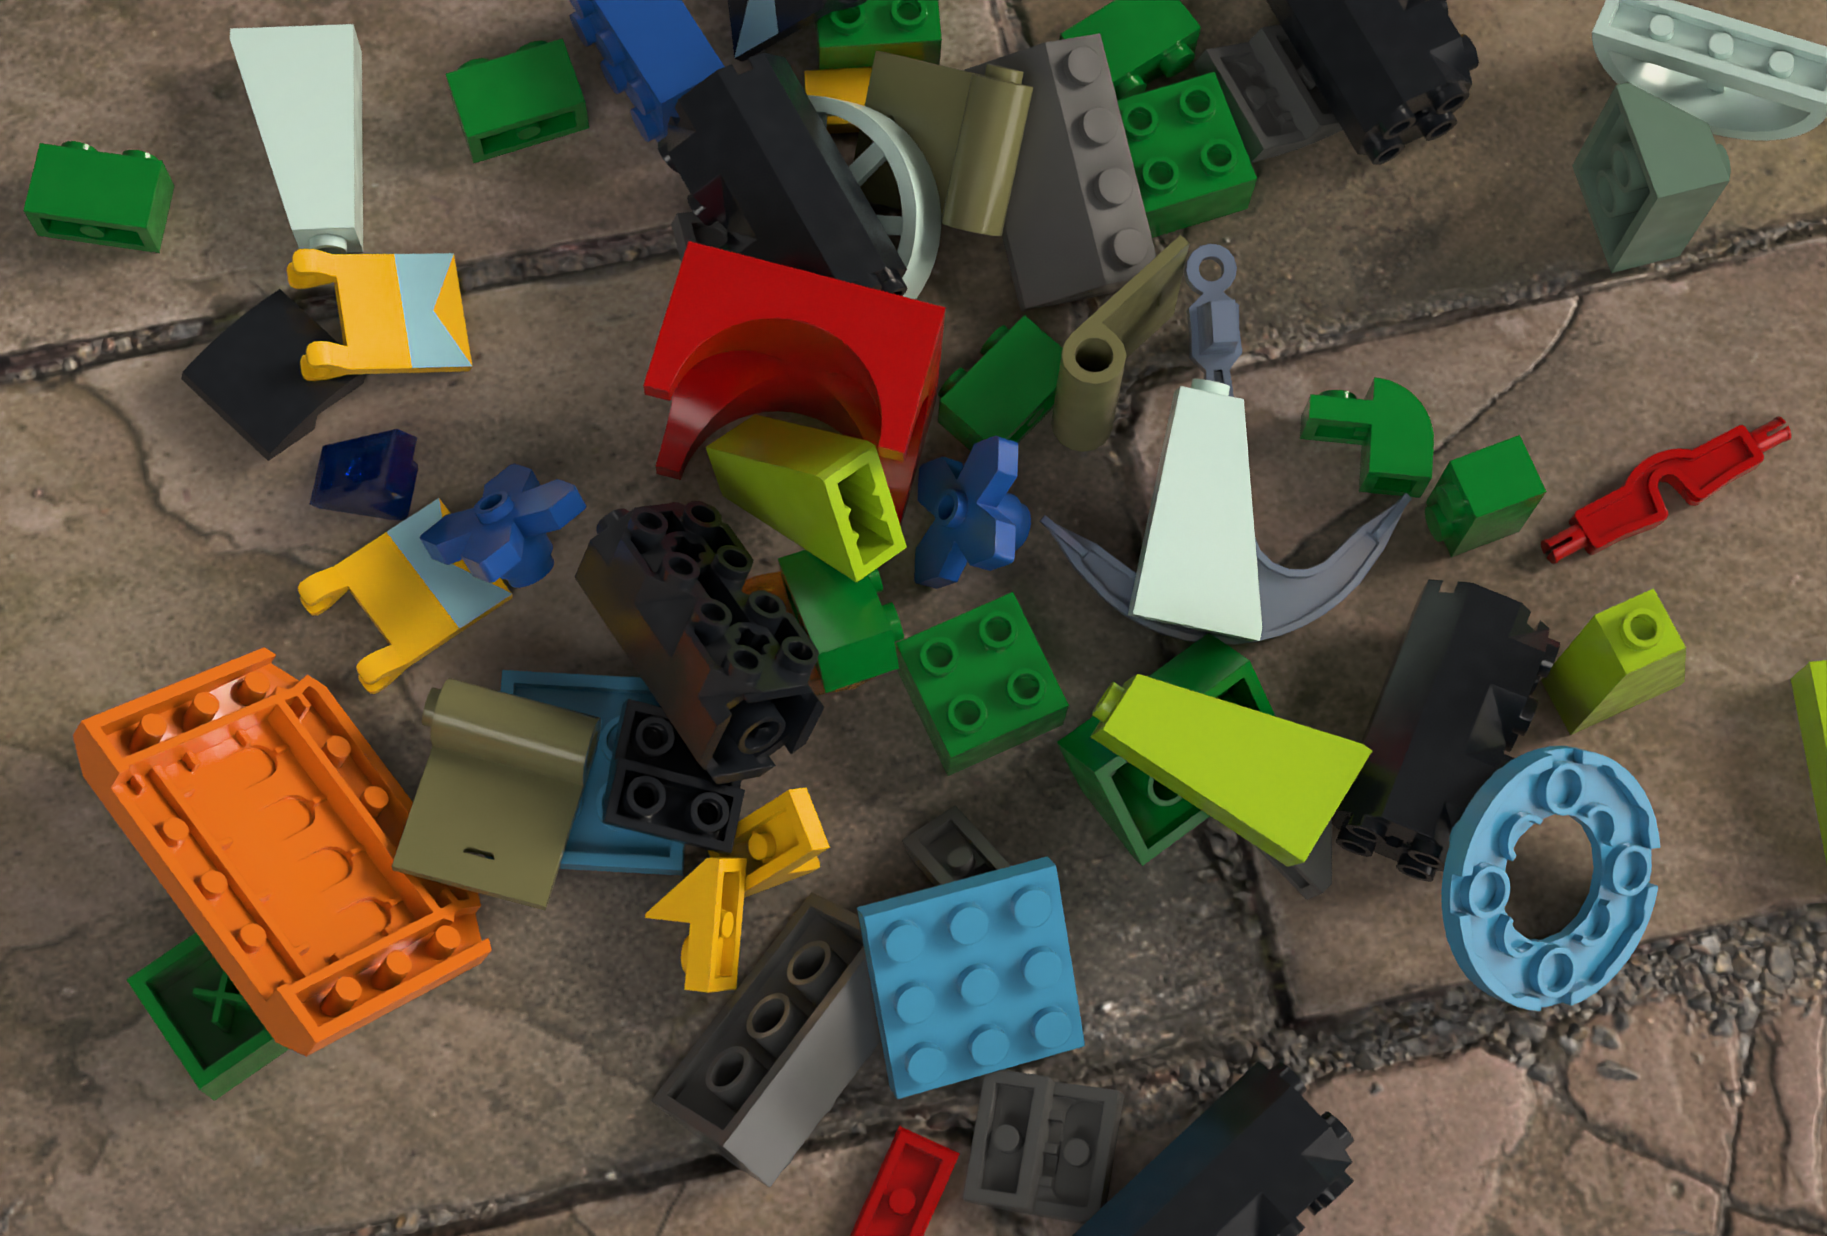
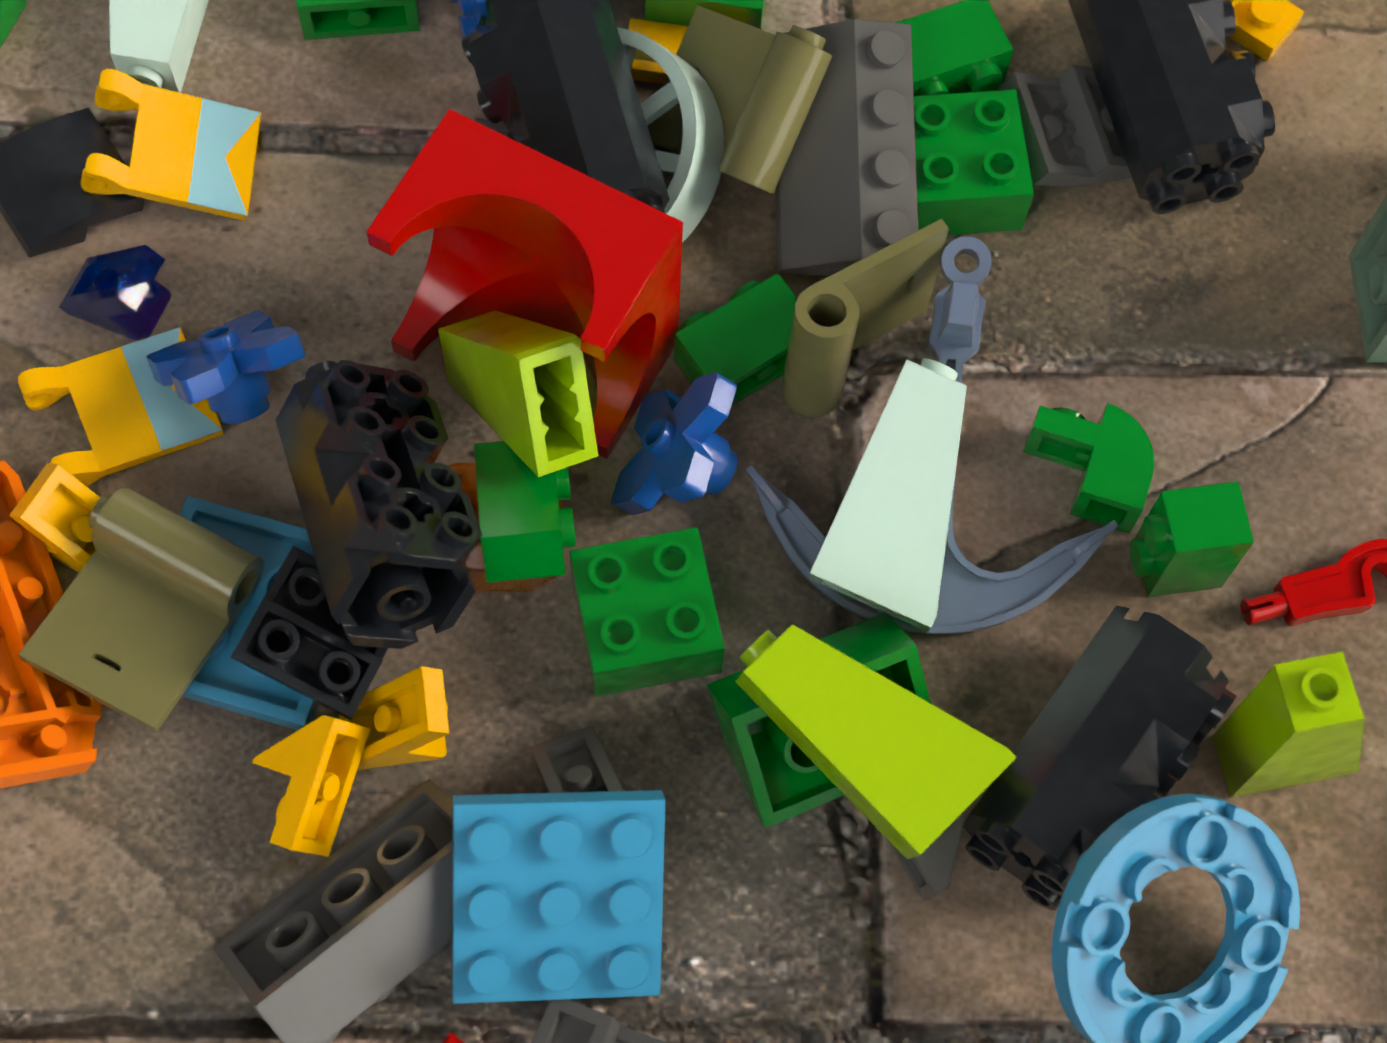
camera: 15 degrees right, 5 degrees down
(390, 721) = (58, 514): none -> yellow slope

